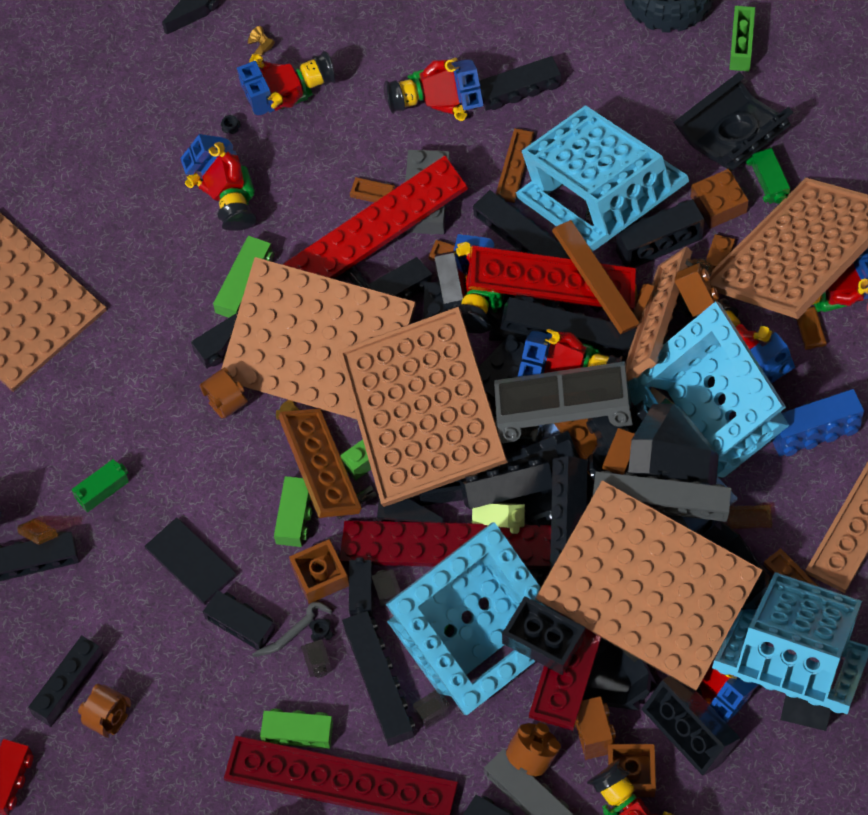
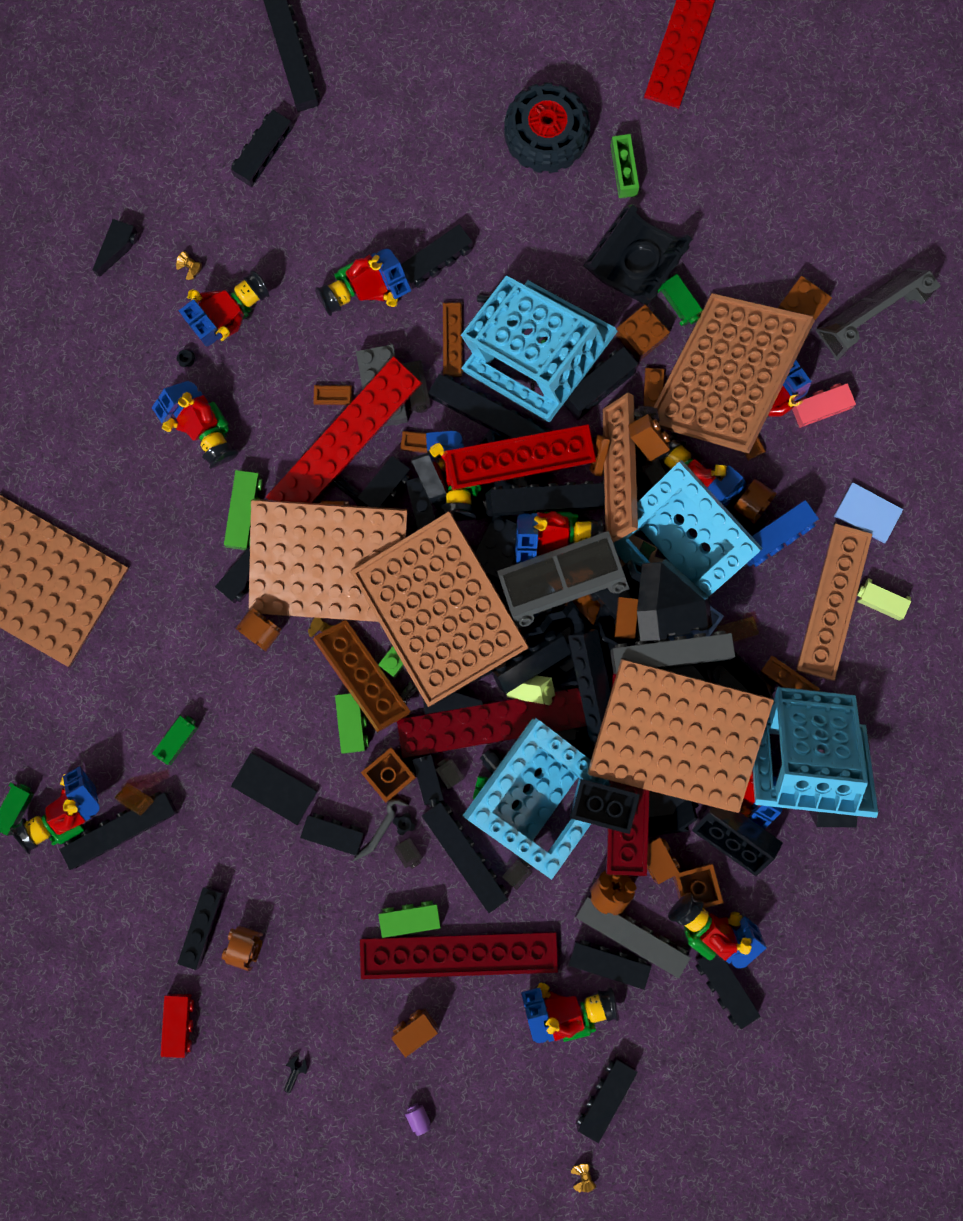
camera: 20 degrees left, 20 degrees up
(463, 204) = (420, 398): none -> clear smoke brick
(595, 277) = (558, 446): dark orange tile -> none
(799, 384) = (754, 501): none -> dark orange brick

